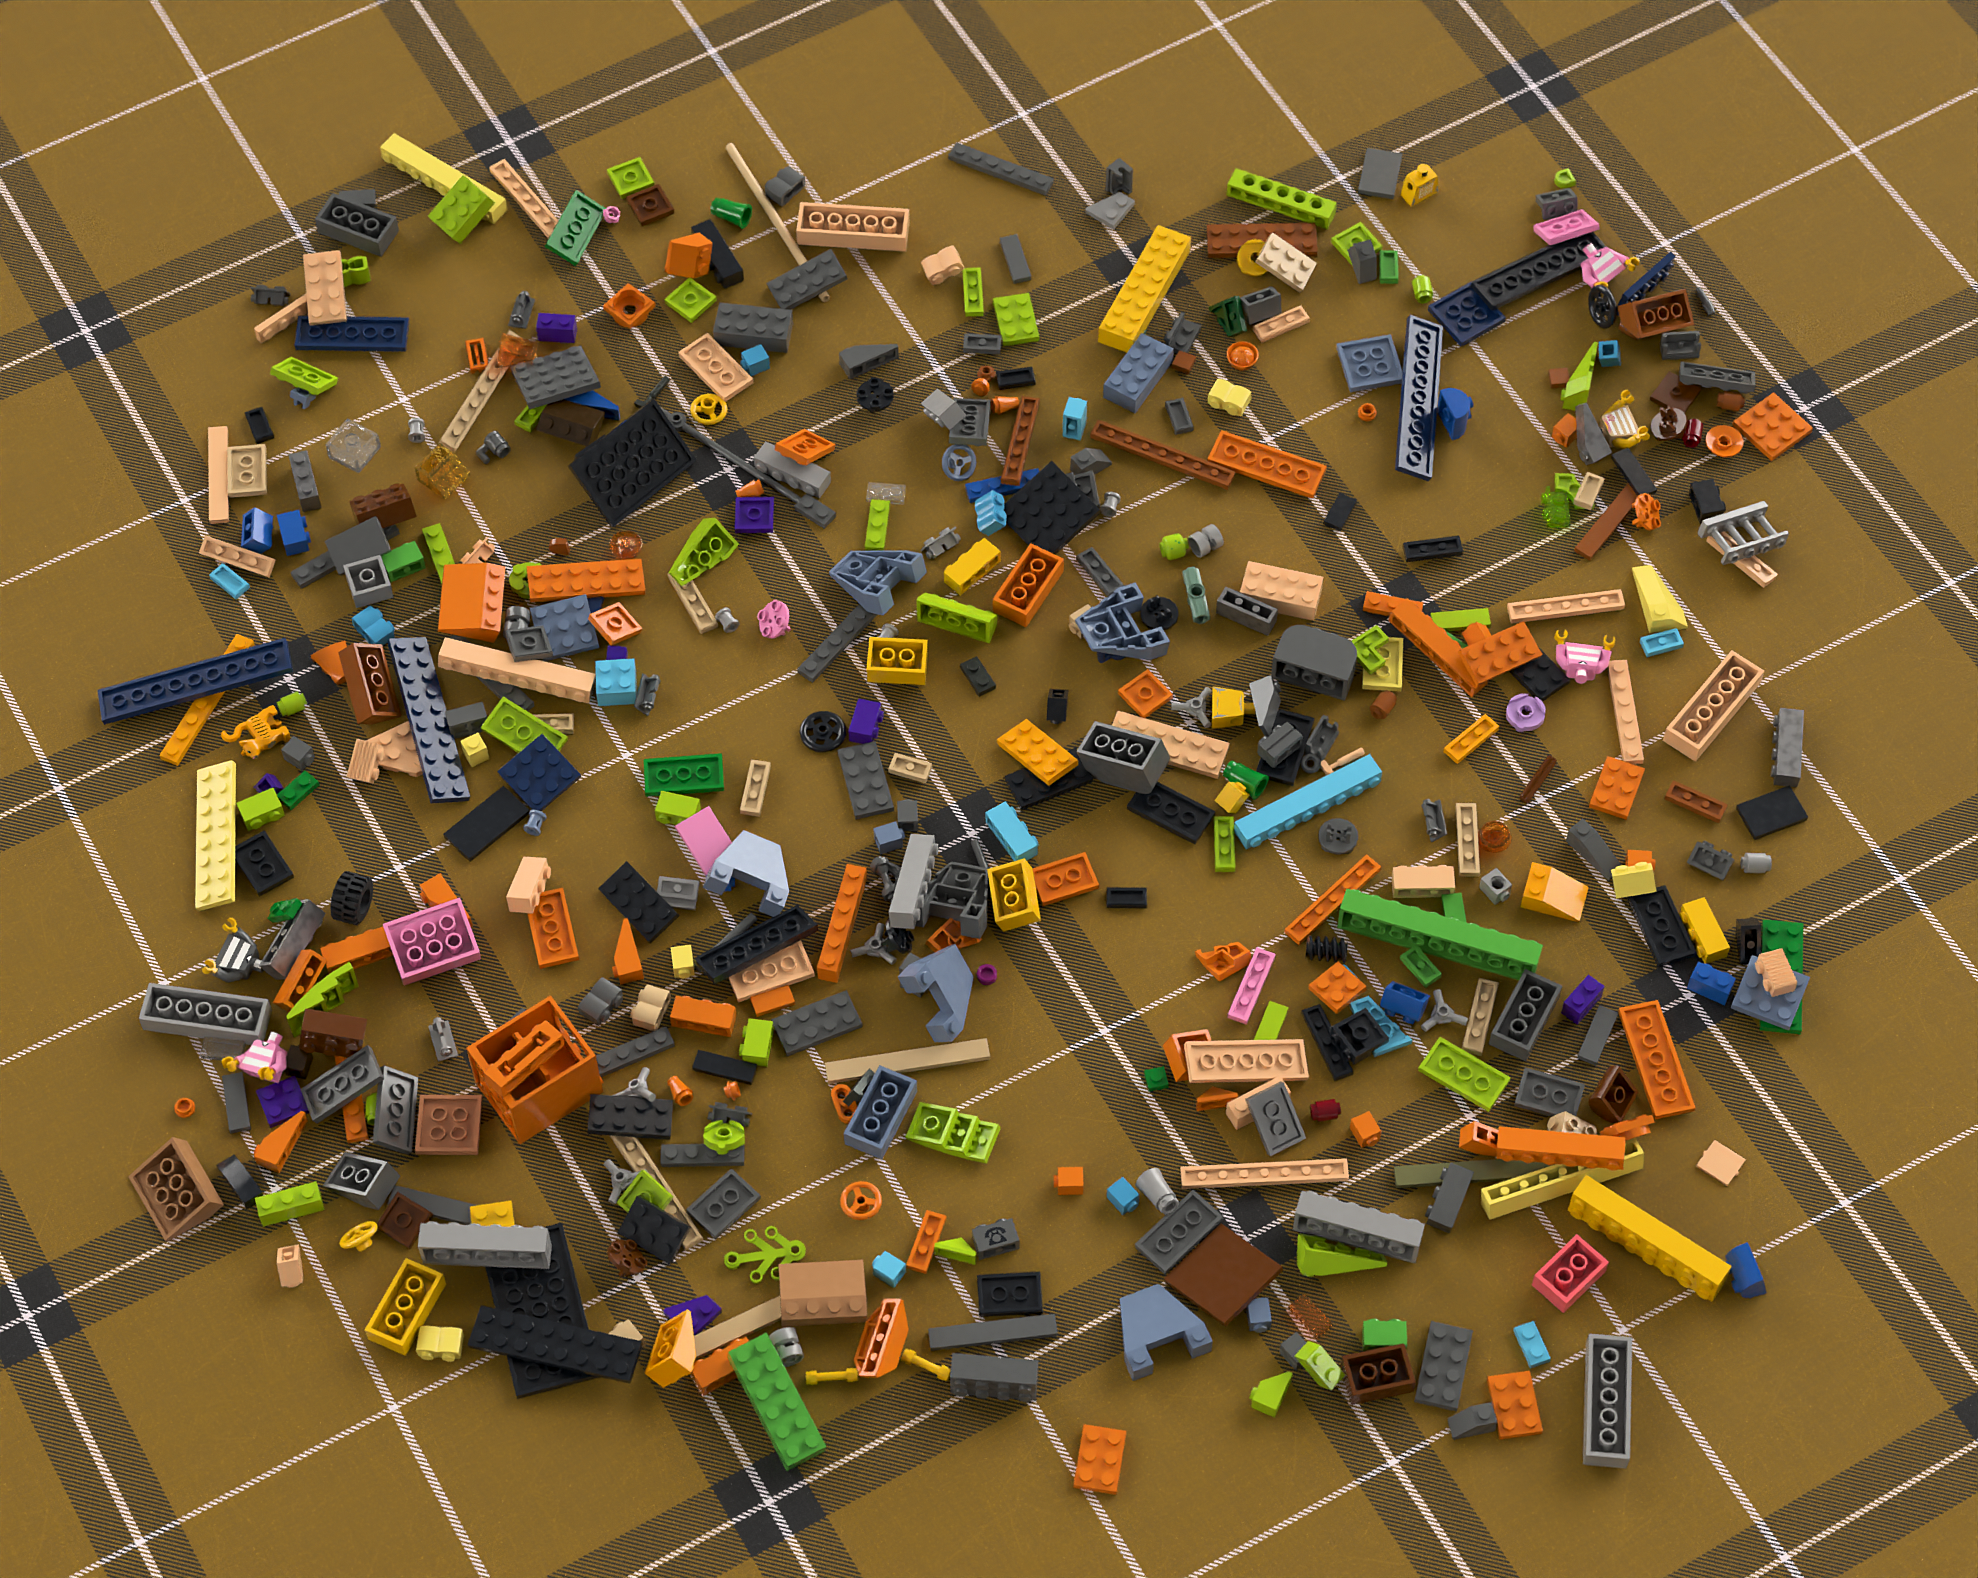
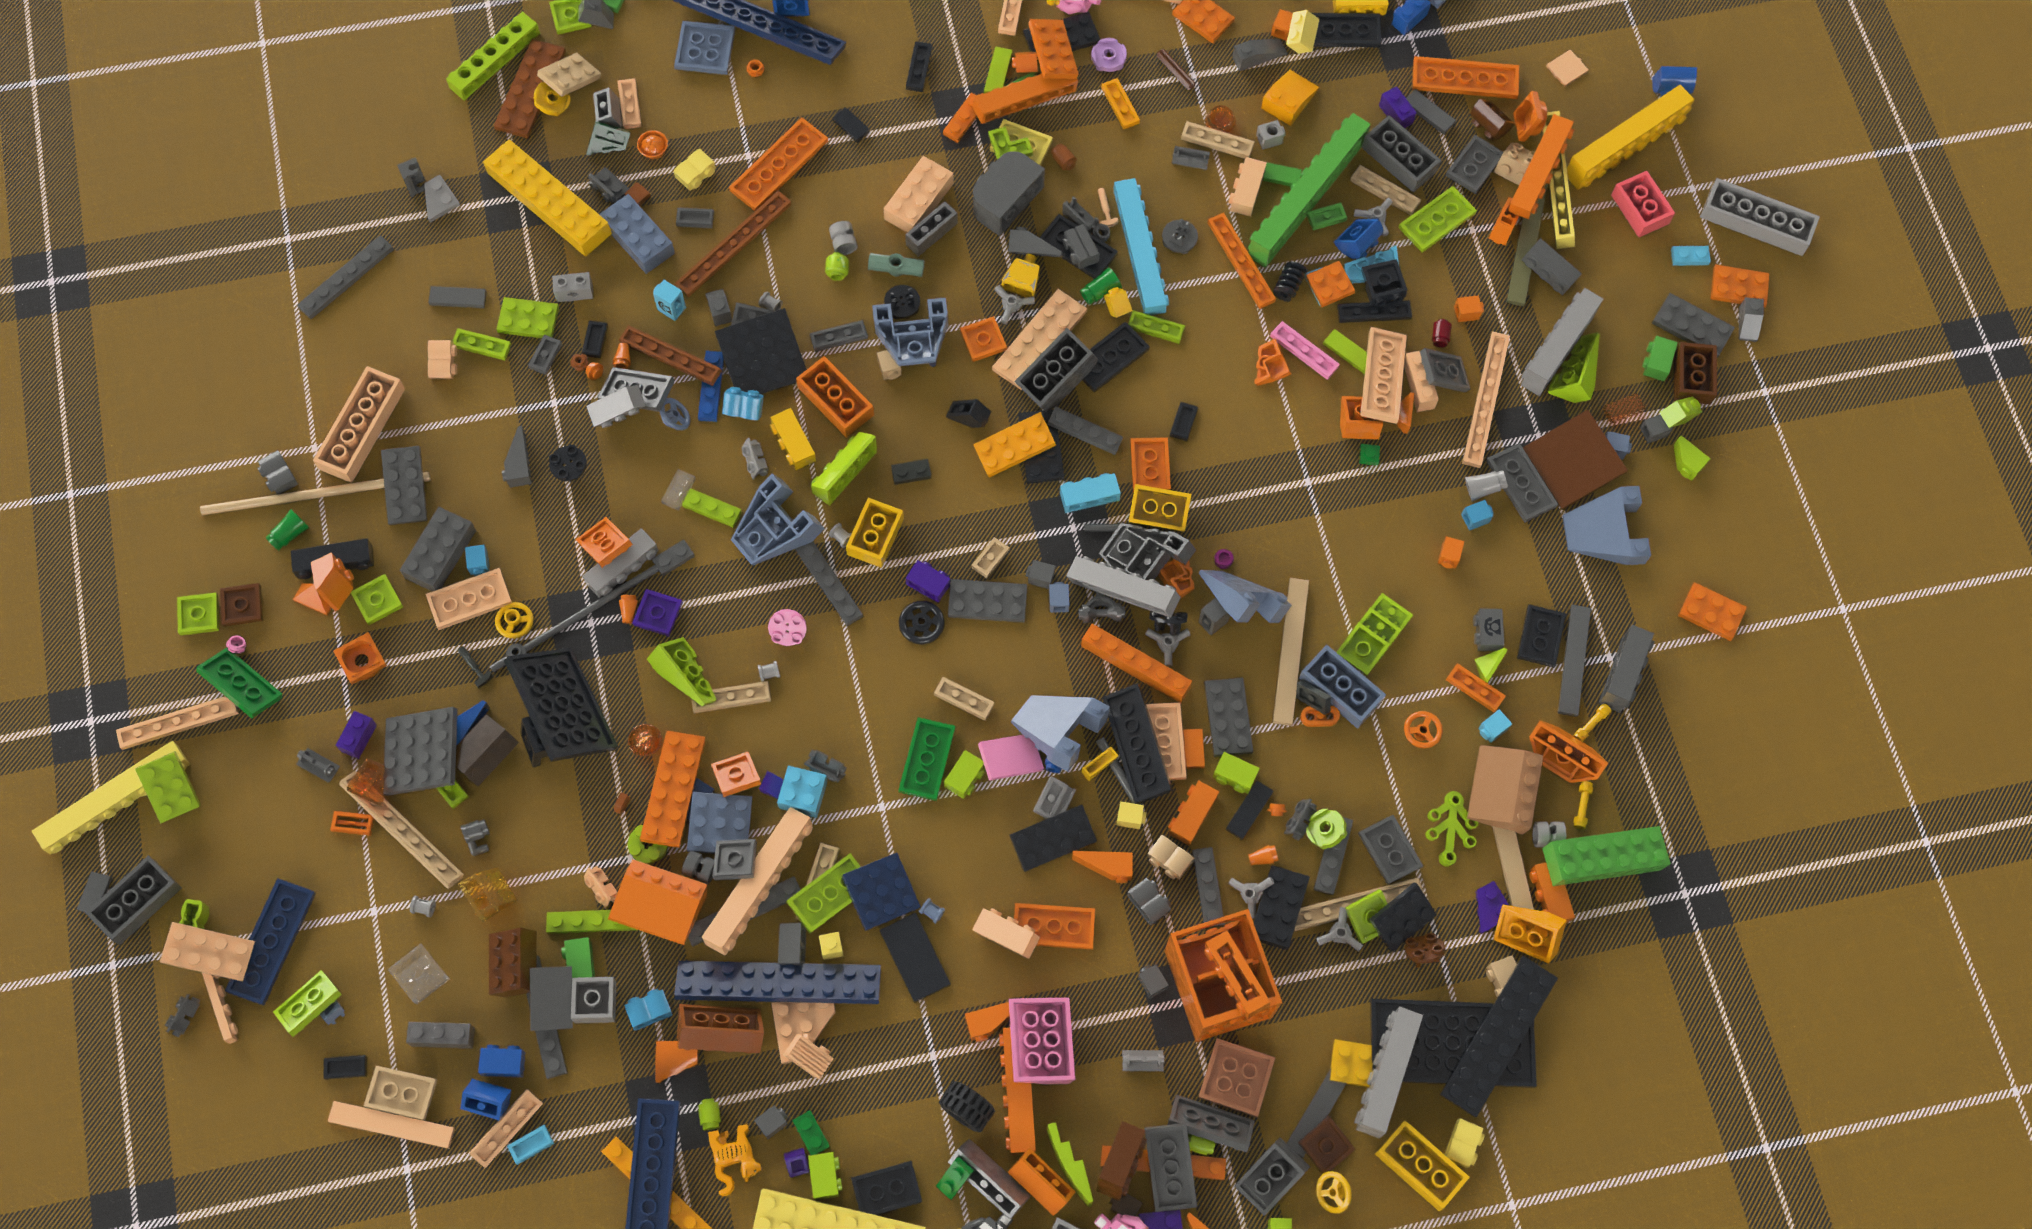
camera: 75 degrees left, 10 degrees up
(725, 919) = (1099, 763): none -> yellow piece
(1060, 341) = (572, 287): none -> light grey brick
(1078, 810) = (1085, 430): none -> dark grey plate

